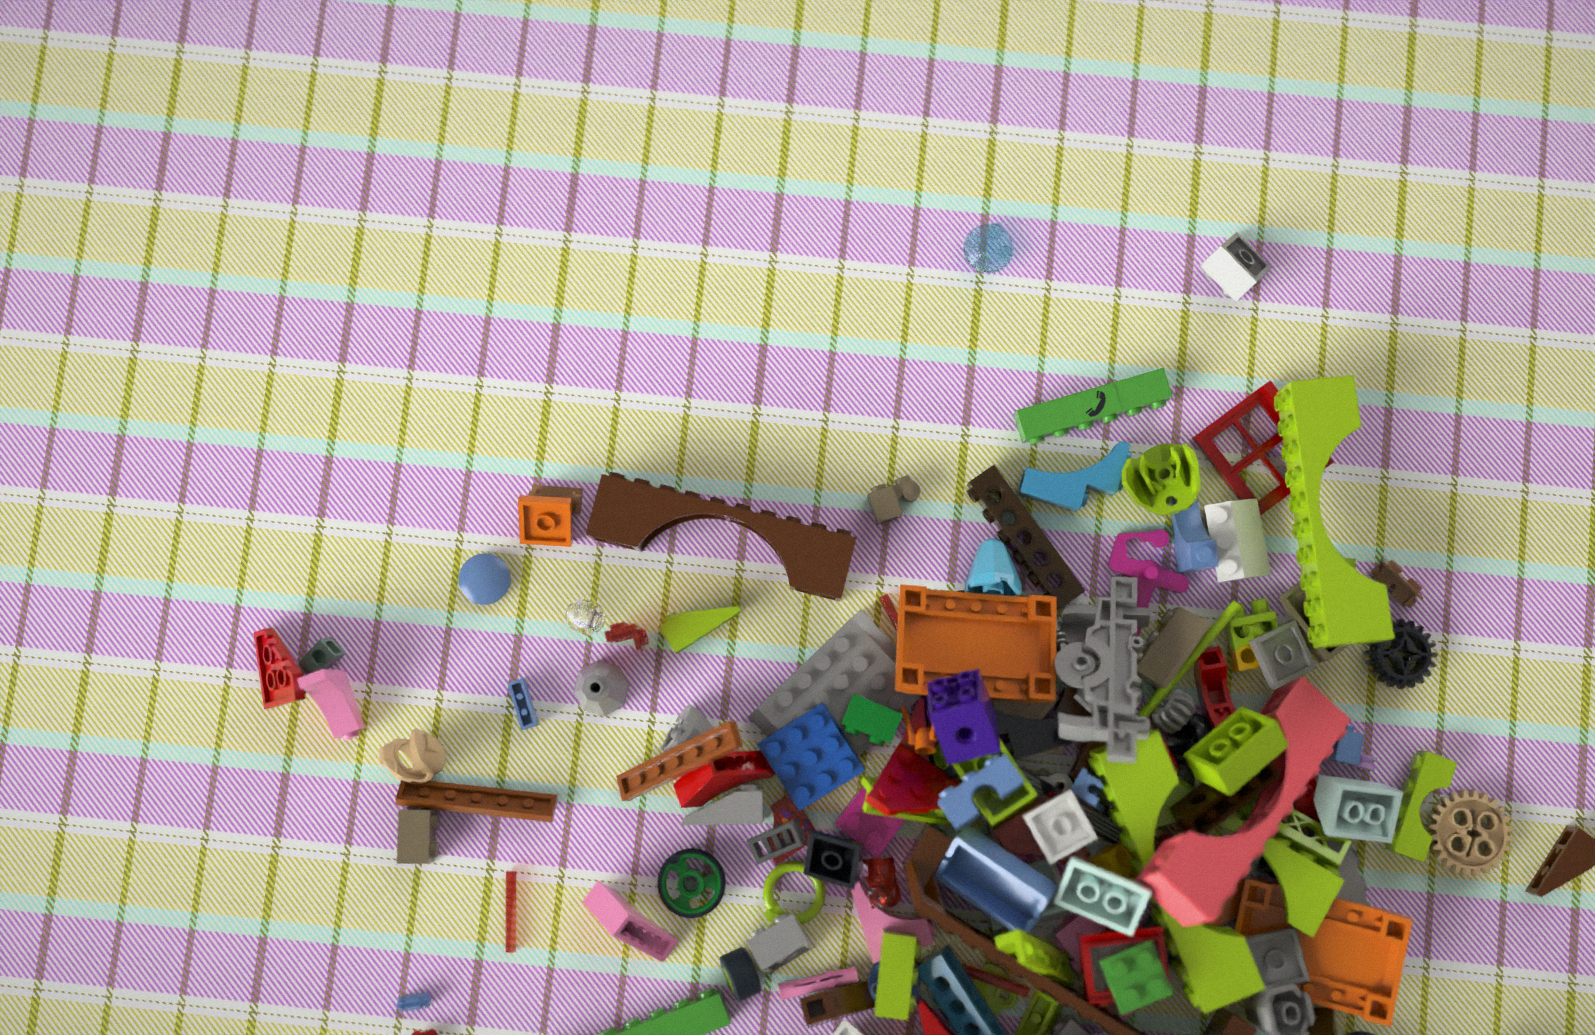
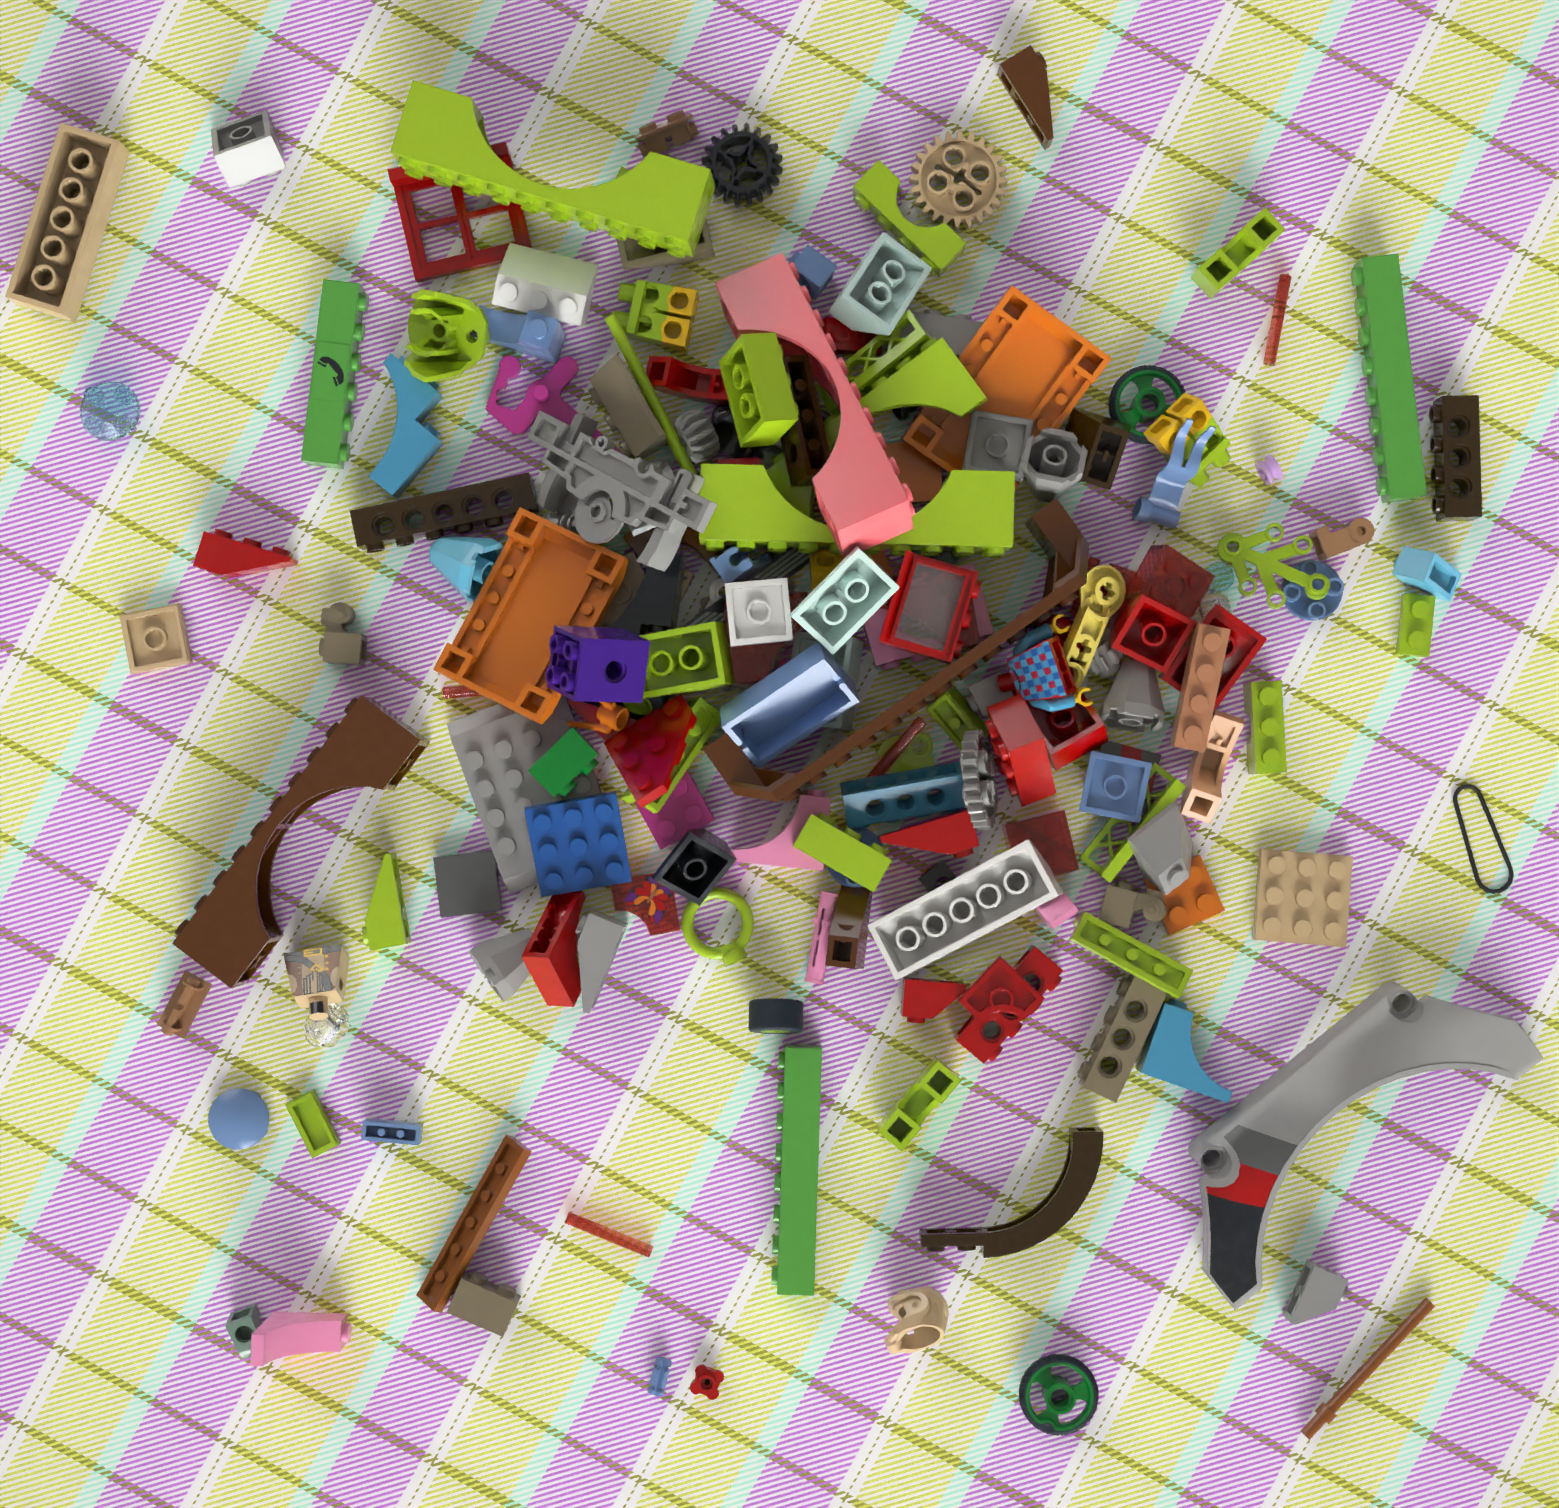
camera: 65 degrees left, 5 degrees up
(276, 670) = (239, 1386): red plate -> none
(424, 752) = (397, 1260): tan helmet -> none
(504, 638) = (313, 1123): none -> lime tile
(545, 520) = (201, 1026): orange plate -> none
(612, 688) = (420, 1032): light grey cone -> none
(620, 595) = (318, 978): none -> torso
(622, 631) = (359, 992): clear red bracket -> none
(628, 923) = (672, 1112): bright pink arch -> none
(678, 863) = (632, 1033): green wheel -> none
(679, 760) = (519, 987): dark orange plate -> none
(741, 679) = (467, 883): none -> dark grey tile
(779, 943) = (761, 961): light grey slope -> none
(797, 830) = (653, 892): dark grey slope -> none
(829, 357) = (156, 639): none -> tan tile
(882, 882) = (743, 824): clear red animal -> none
(917, 390) = (233, 558): none -> red slope
(997, 775) = (675, 655): medium blue arch -> none
(1037, 956) = (881, 694): lime fence -> none
(1118, 157) = (67, 222): none -> tan brick
(1135, 977) = (943, 601): bright green plate -> none
(1282, 654) = (685, 292): light grey plate -> none
(1366, 762) = (839, 255): lavender bush -> none

